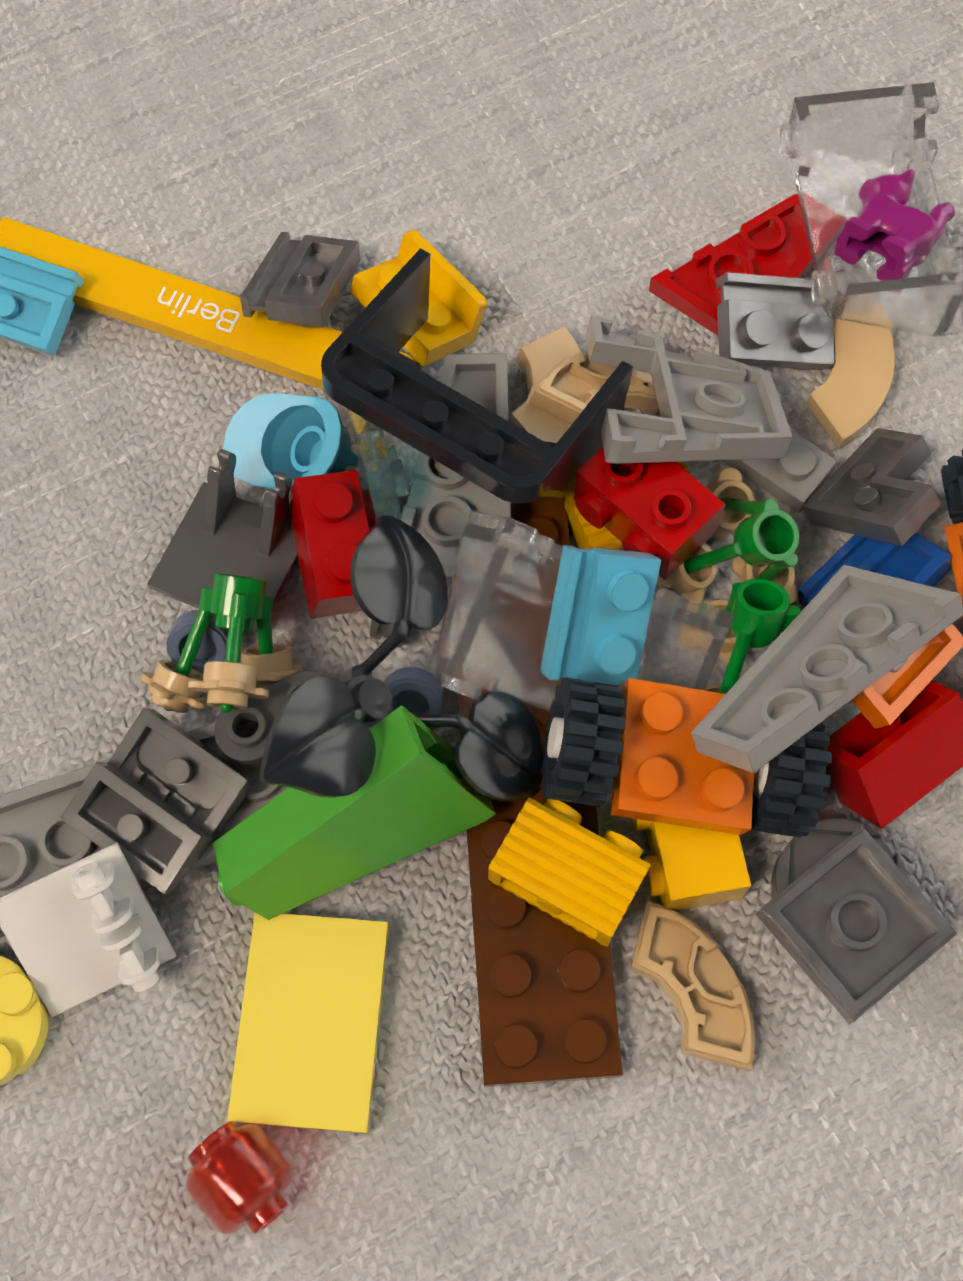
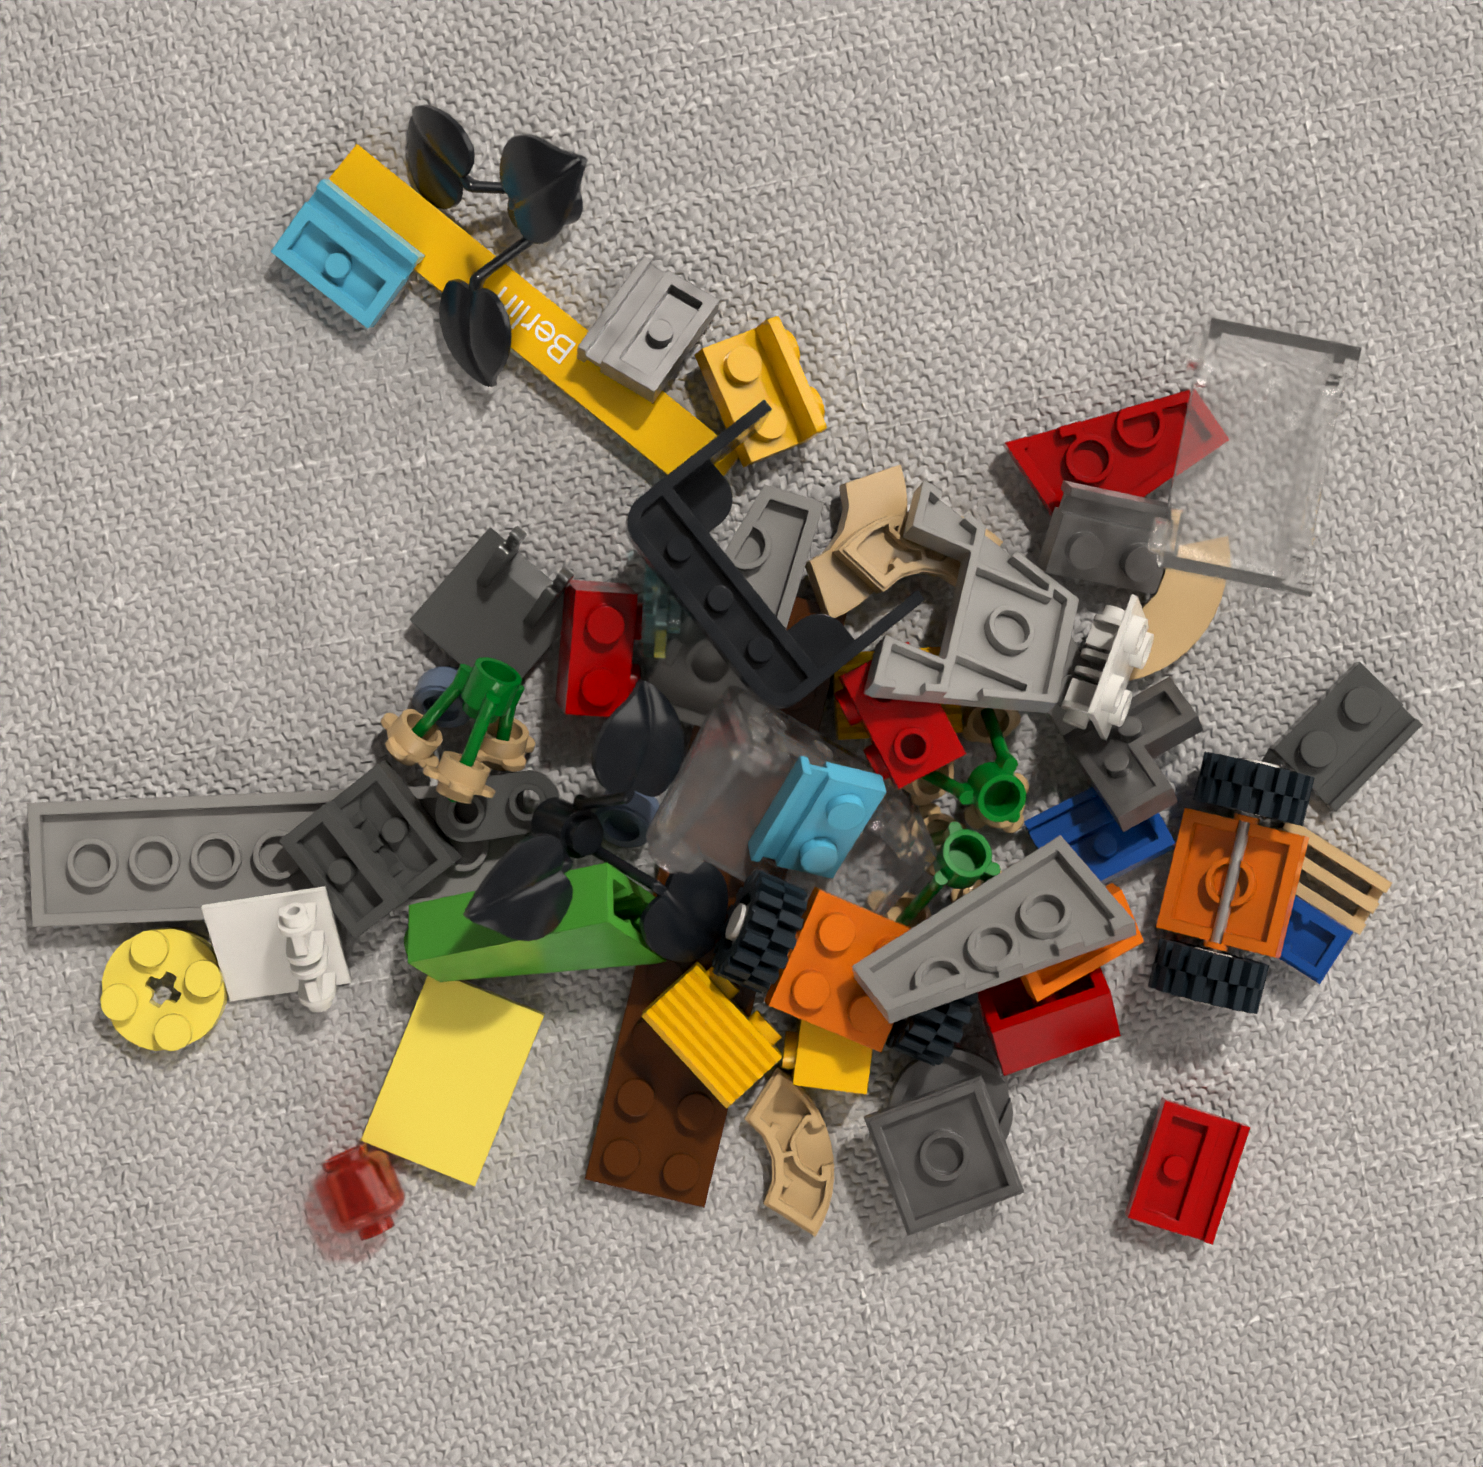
camera: 15 degrees right, 20 degrees up
(156, 140) = (542, 199): none -> black plant
(287, 436) = (577, 521): medium azure piece -> none
(822, 415) = (1129, 645): none -> white hinge
(892, 227) = (1259, 487): magenta animal -> none

